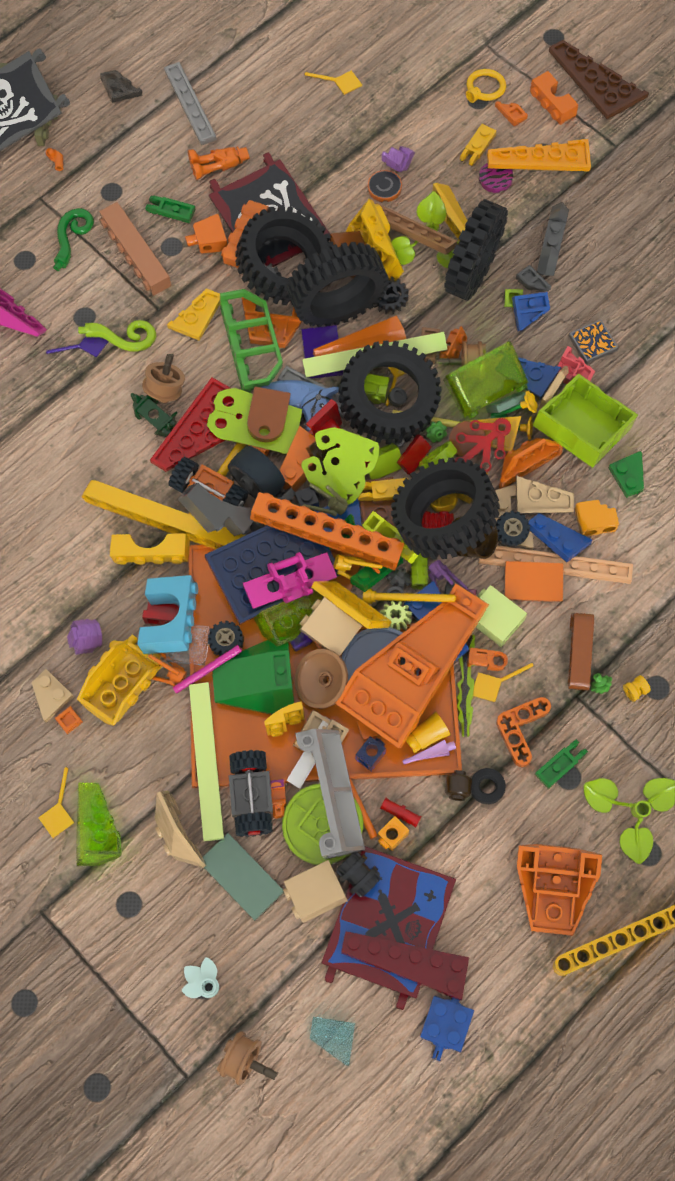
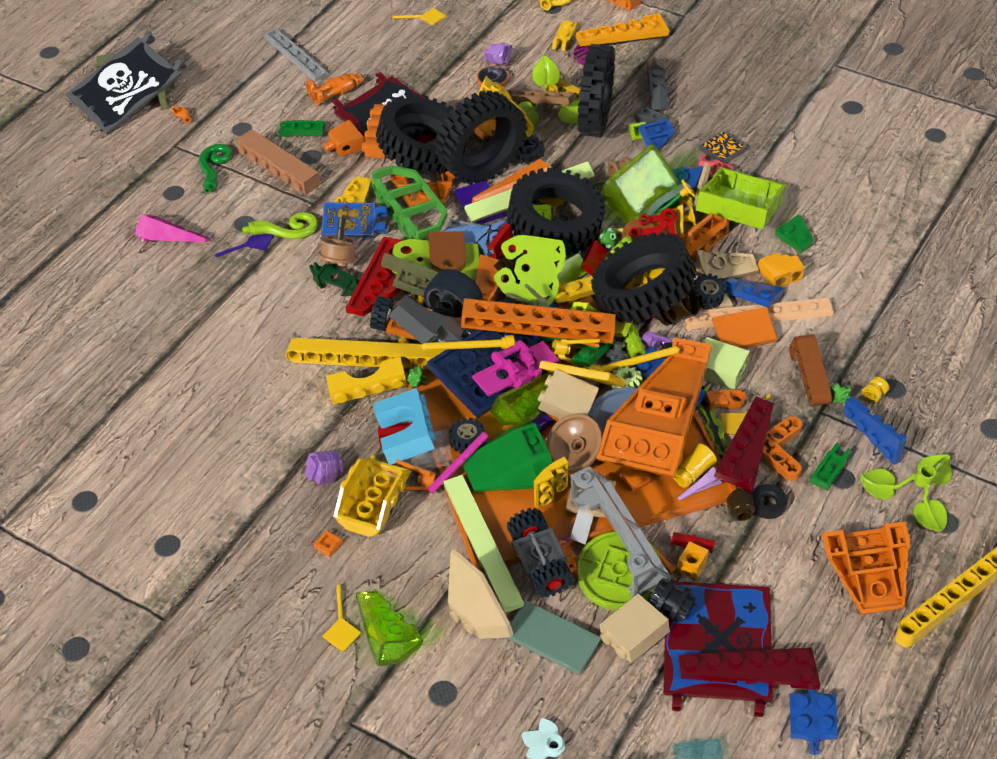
camera: 15 degrees left, 20 degrees down
(50, 694) = (302, 525): tan wing -> none
(119, 87) = (226, 54): clear smoke wing -> none
(188, 344) = (359, 222): none -> blue tile
(196, 557) = (415, 376): none -> bright green plant
(221, 440) = (409, 275): none -> olive bracket
(287, 548) = (504, 343): none -> yellow piece
(371, 761) = (645, 496): clear blue brick -> none
(455, 340) = (600, 170): orange hinge -> none
(478, 734) = (744, 453): none -> dark red wing
(512, 112) = (586, 9): orange tile -> none
(616, 731) = (879, 434): none -> blue wing

